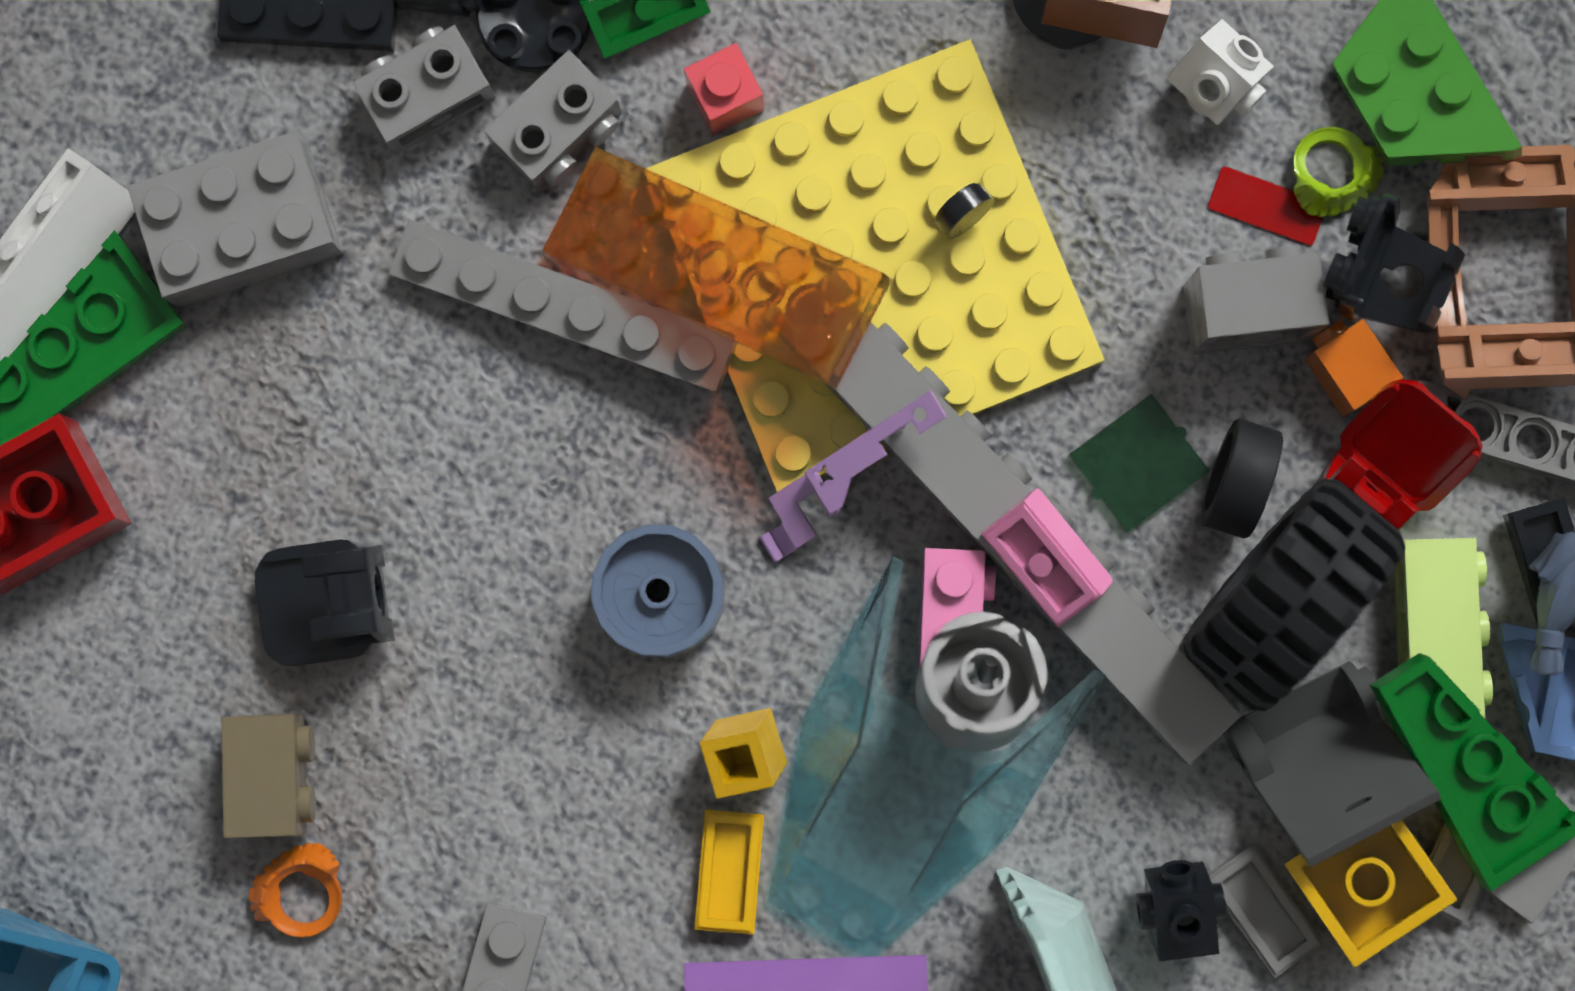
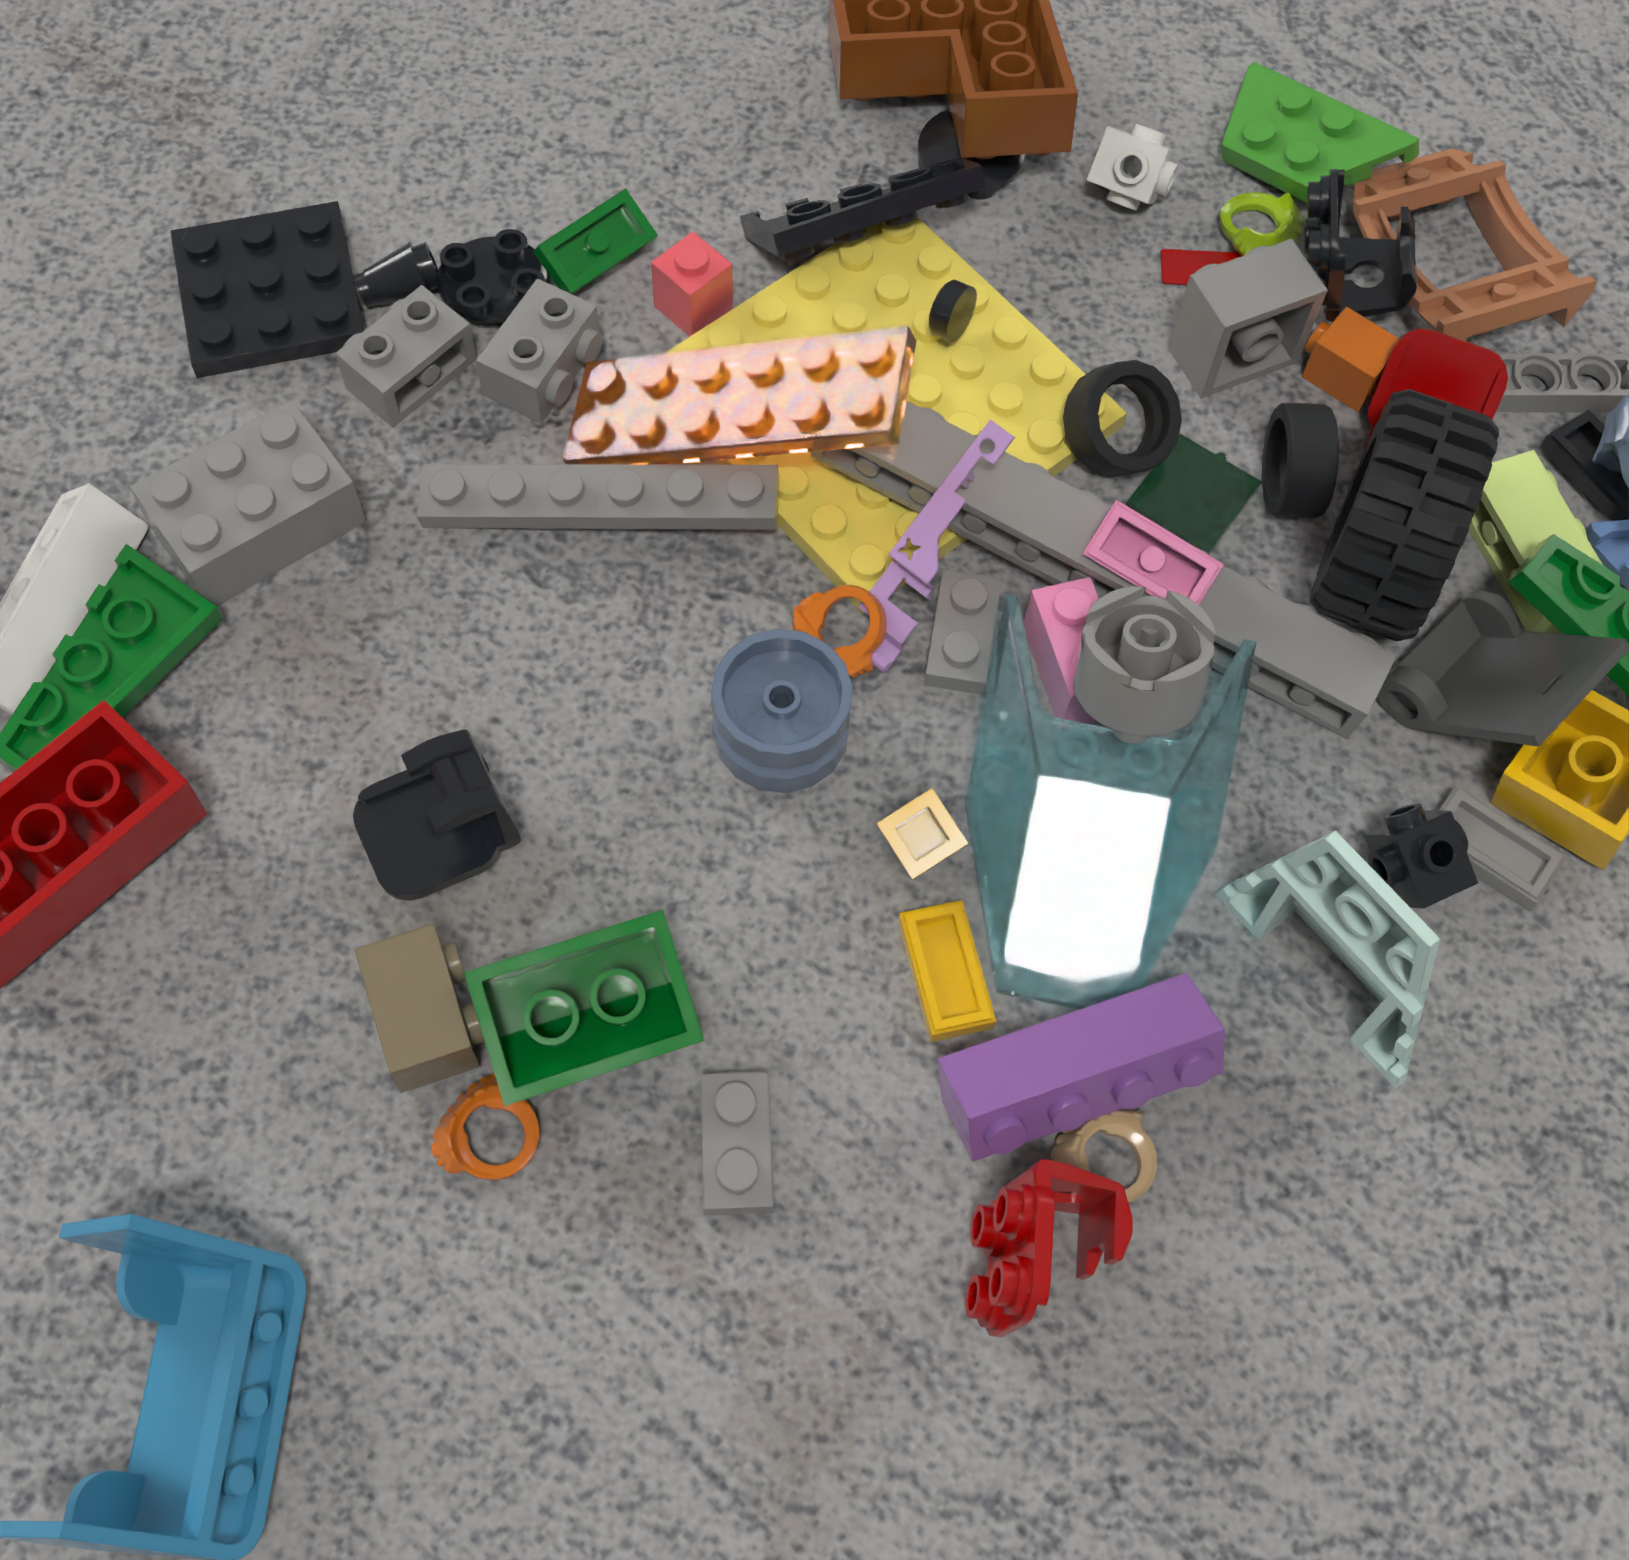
camera: 25 degrees left, 20 degrees down
(402, 820) = (583, 1007): none -> green slope
(735, 545) = (811, 618): none -> orange piece
(861, 546) = (963, 632): none -> light grey plate
(924, 53) = (863, 206): none -> black wing
(1115, 407) = (1160, 412): none -> black tyre

